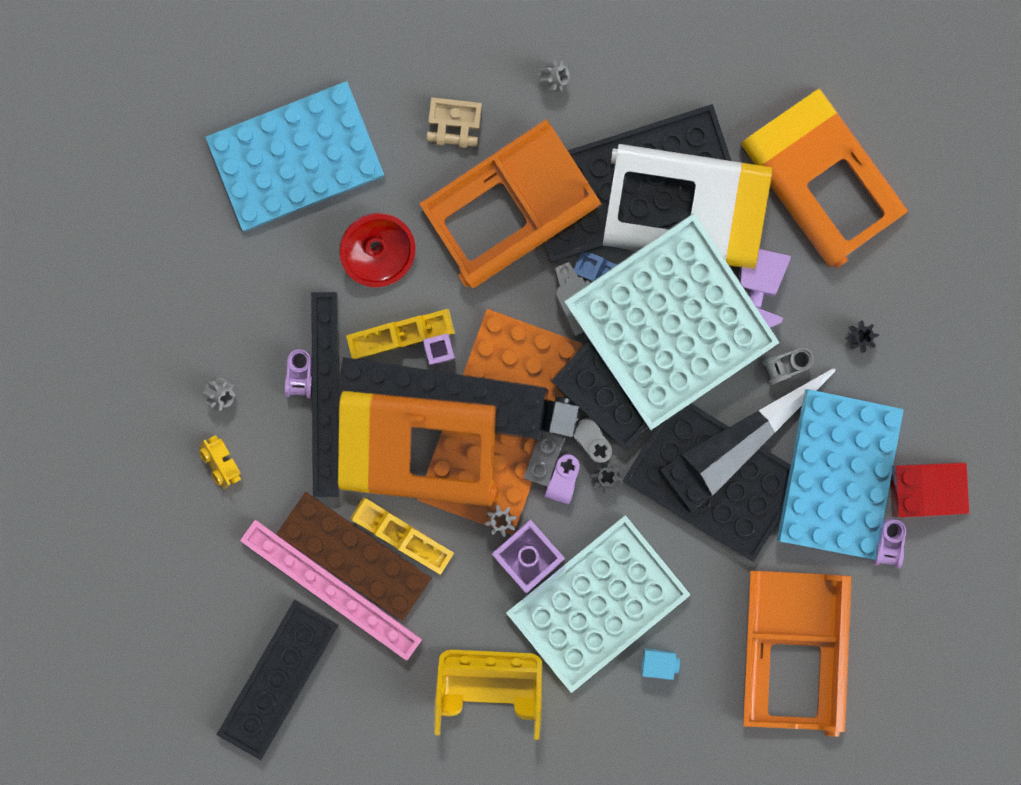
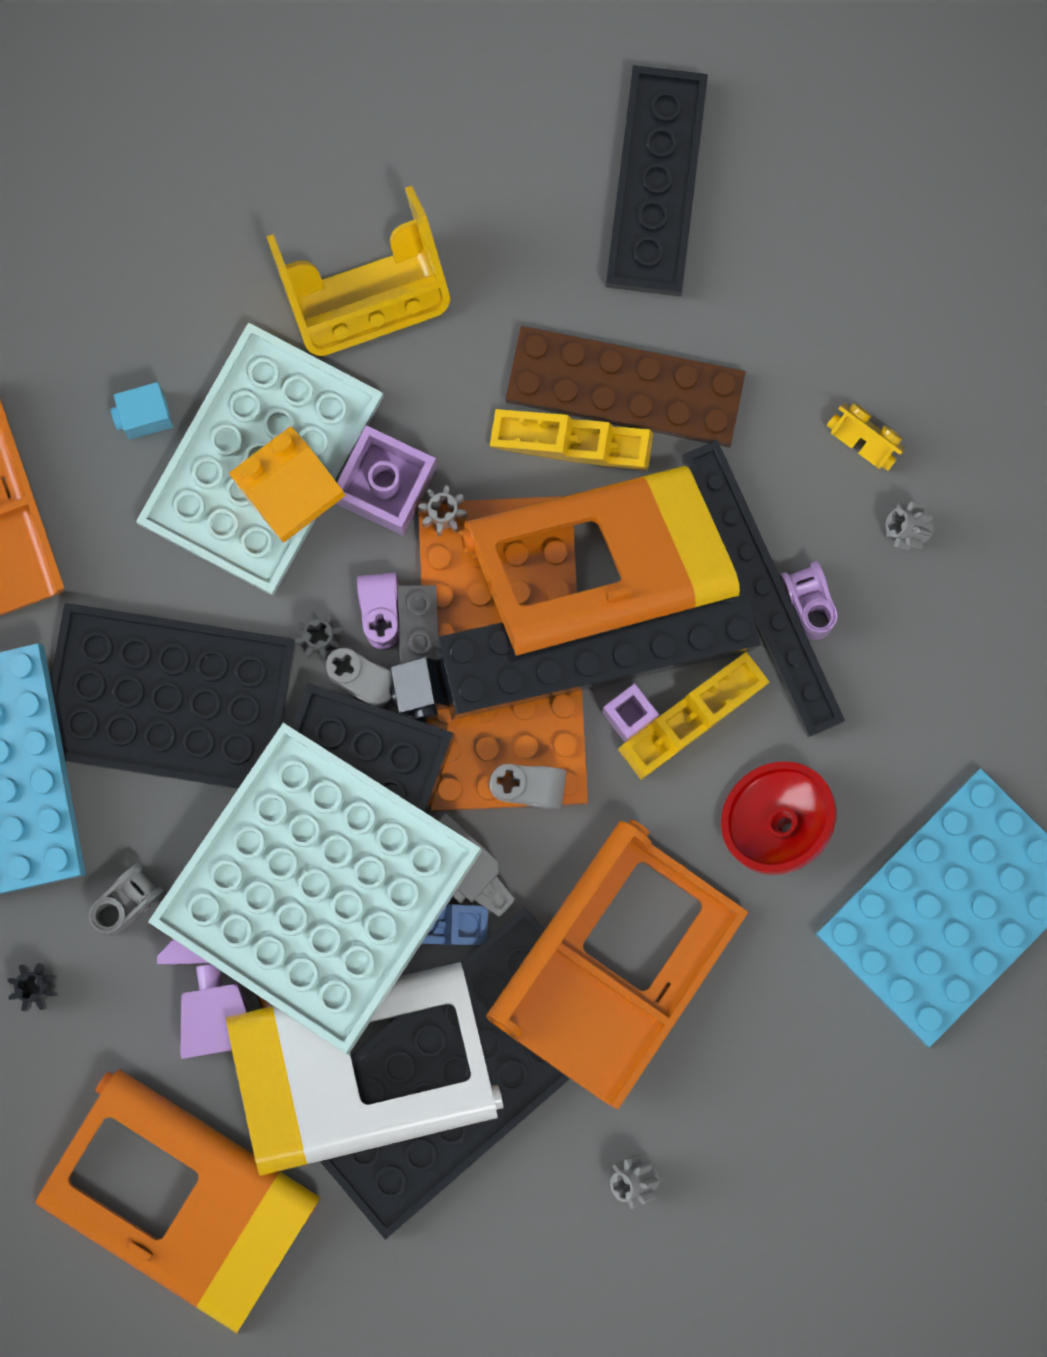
camera: 160 degrees right, 5 degrees down
(331, 589) = (636, 327): bright pink plate -> none
(454, 114) = (754, 1064): tan plate -> none
(514, 328) = (537, 786): none -> light grey piece
(590, 574) = (287, 484): none -> light orange slope
(712, 463) = (179, 712): black plate -> none

